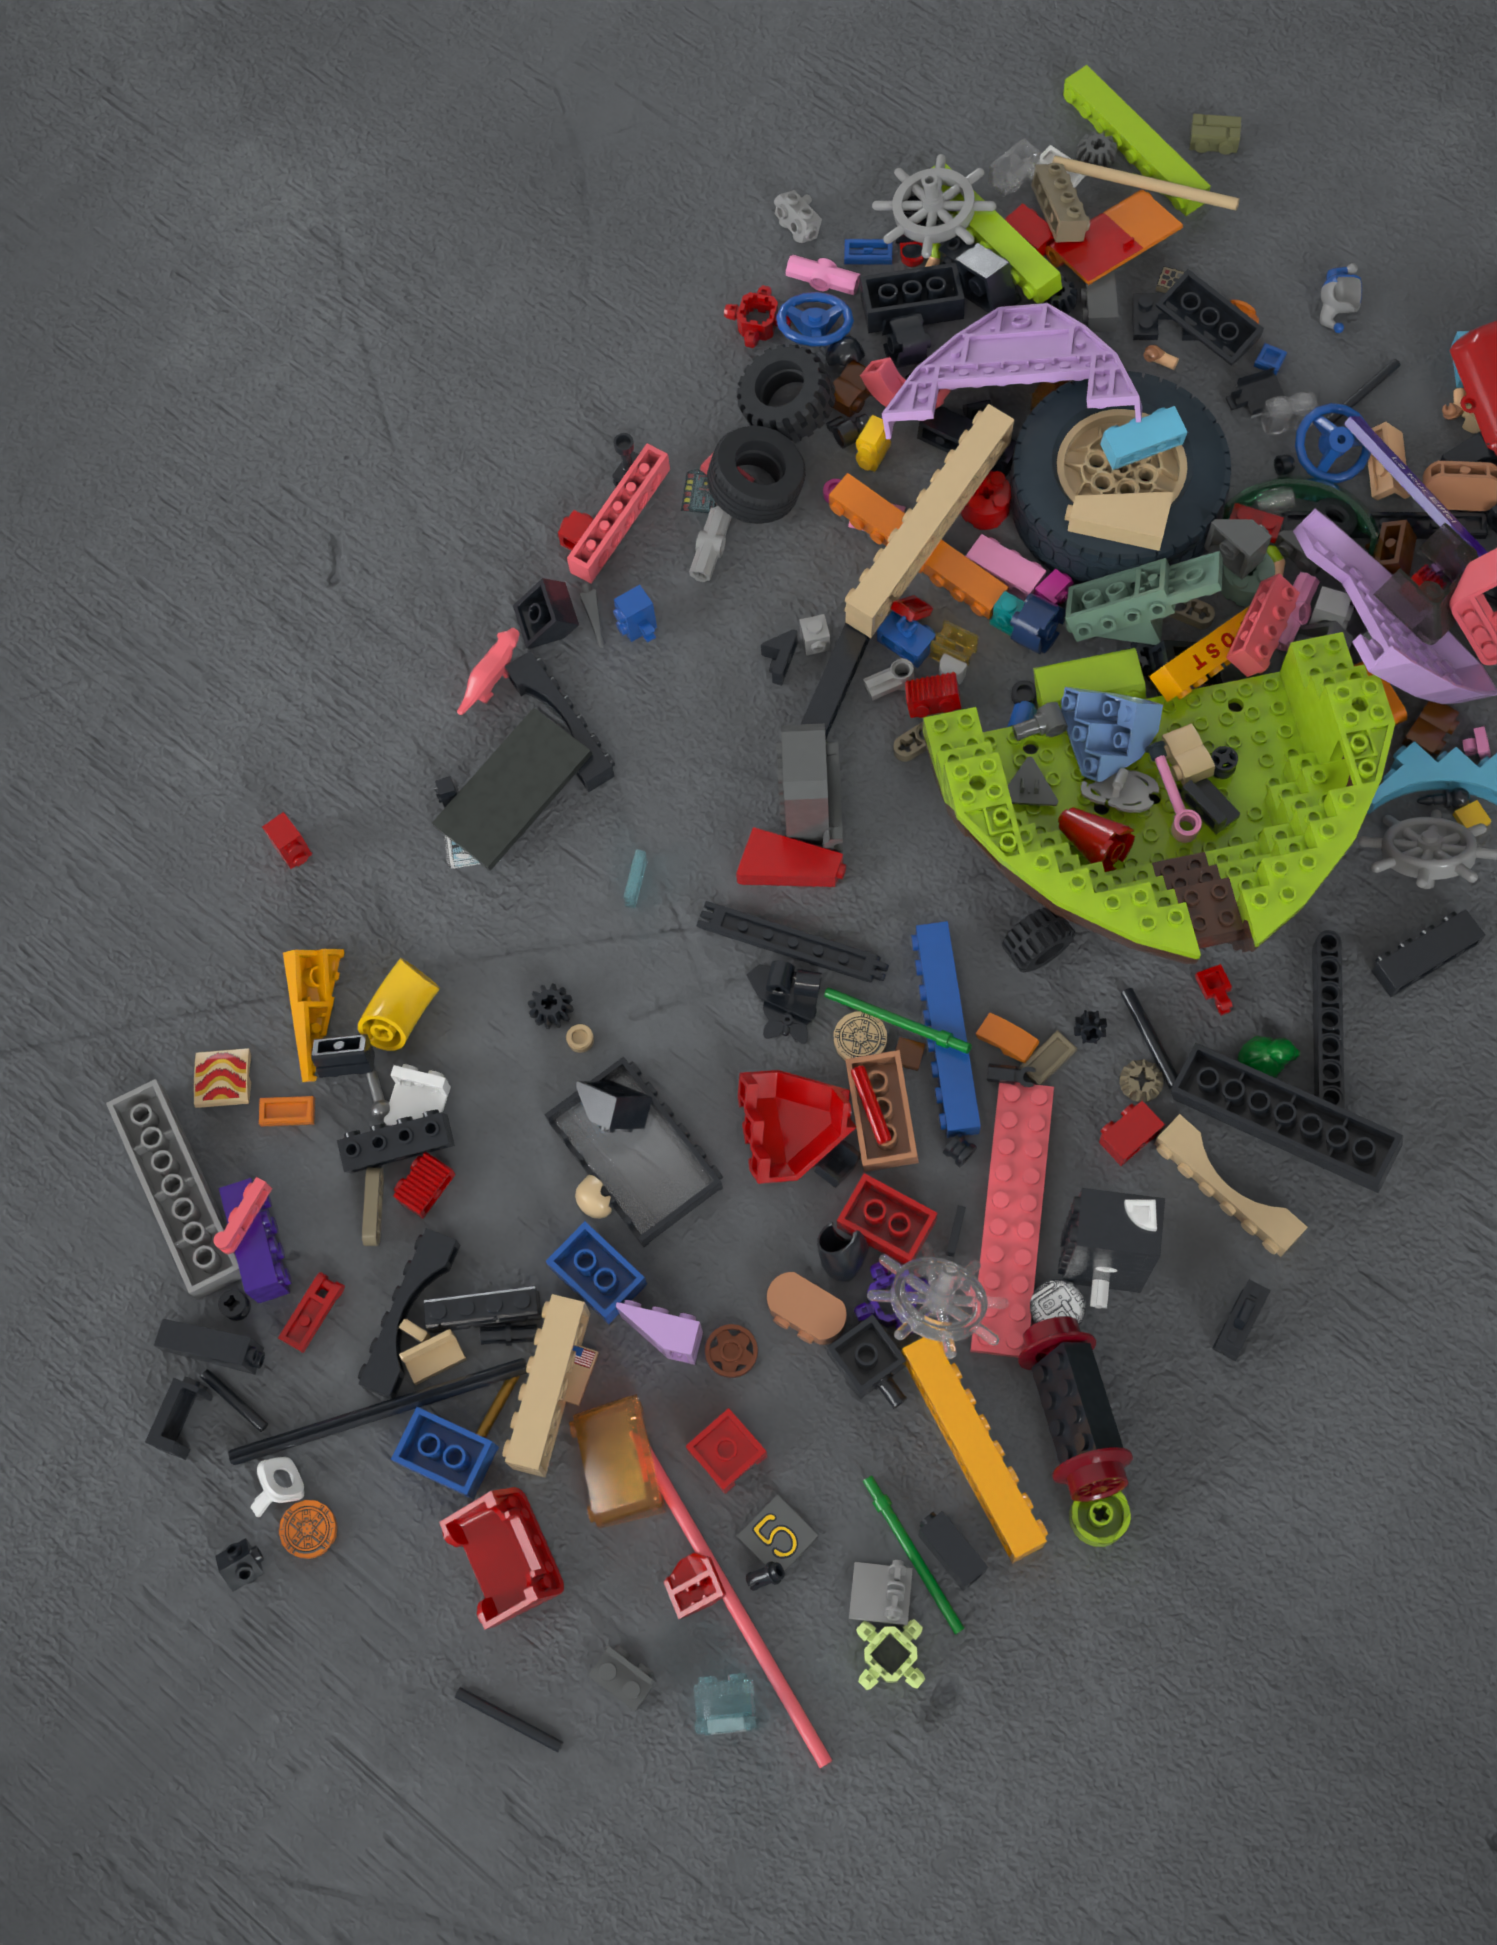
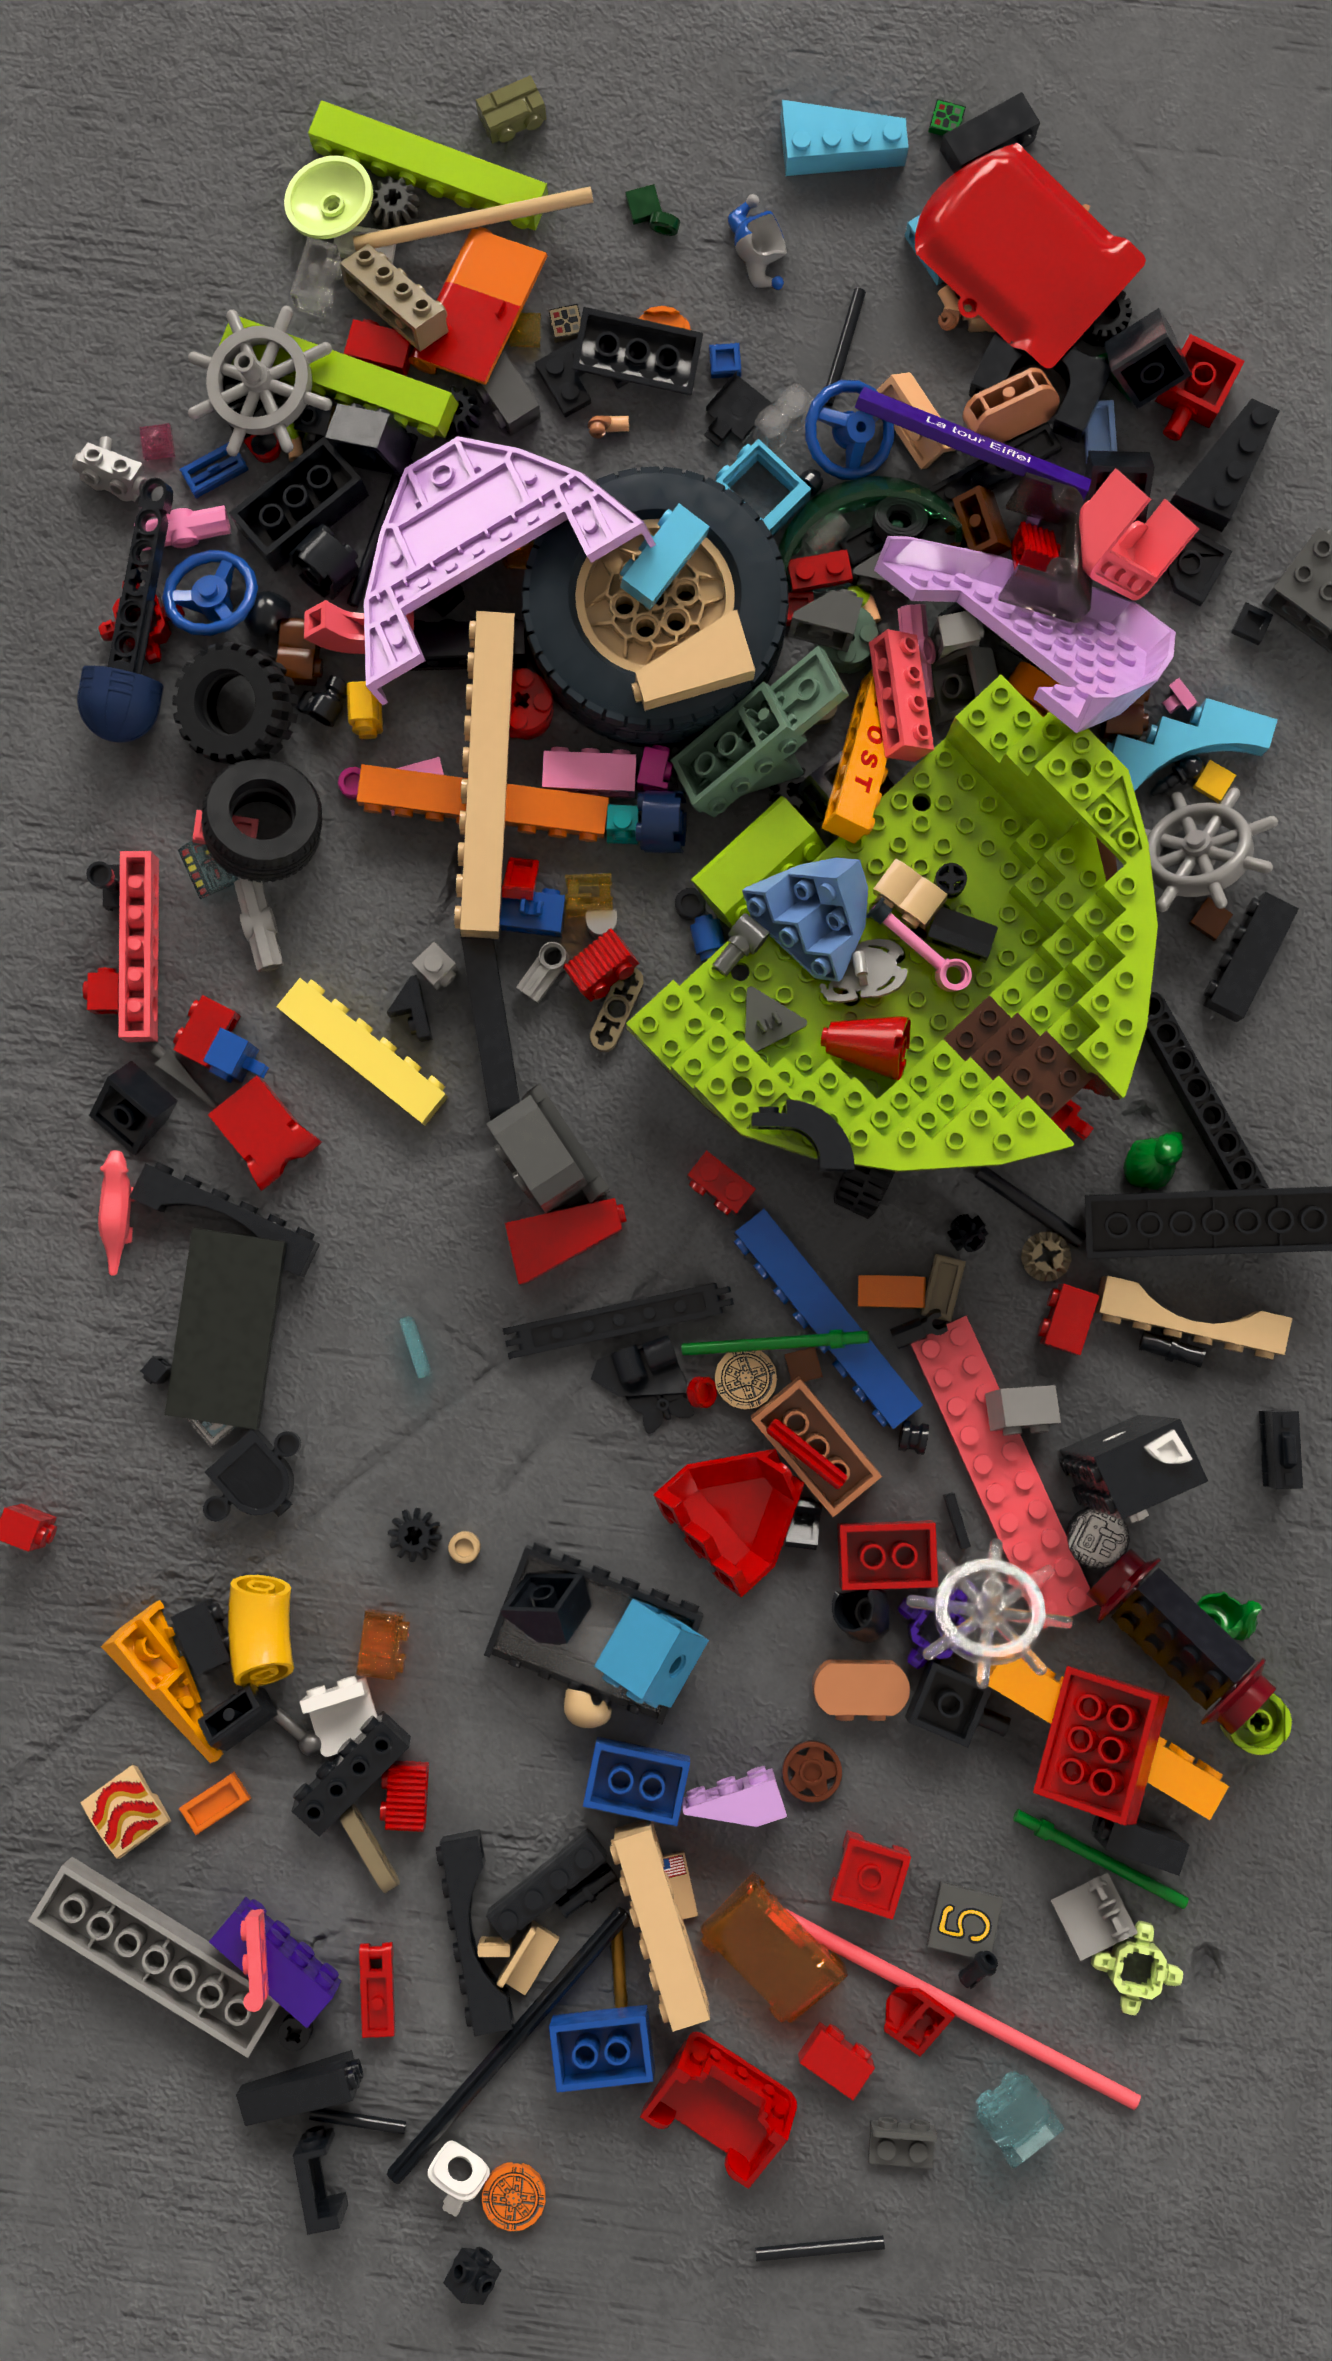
camera: 40 degrees left, 15 degrees up
(356, 987) = (203, 1635): none -> black brick
(465, 900) = (253, 1476): none -> black piece
(477, 1068) = (381, 1644): none -> clear orange brick
(613, 1577) = (837, 2060): none -> red brick
(624, 675) = (262, 1131): none -> red piece
(631, 578) = (201, 1029): none -> red brick
(665, 1179) = (650, 1654): none -> dark azure brick
(711, 349) = (117, 698): none -> piece
(728, 665) = (362, 1051): none -> light yellow brick
(821, 1027) = (701, 1392): none -> red tile
(841, 216) = (157, 441): none -> clear pink tile
(927, 890) = (720, 1183): none -> red brick
(965, 1443) = (1101, 1745): none -> red slope
(1010, 826) = (816, 1126): none -> black arch
(1054, 124) = (328, 197): none -> yellowish green dish
(1055, 1173) = (1022, 1409): none -> light grey brick
(1131, 1426) = (1231, 1615): none -> green hair
(1139, 271) = (526, 331): none -> clear yellow plate
(1199, 1201) = (1172, 1349): none -> black pin
(1258, 470) = (799, 490): none -> medium azure window
(1272, 235) = (642, 203): none -> dark green tile
(1279, 252) = (664, 223): none -> dark green tile
(1413, 911) = (1210, 919): none -> reddish brown tile
(1439, 260) = (839, 139): none -> medium azure wedge

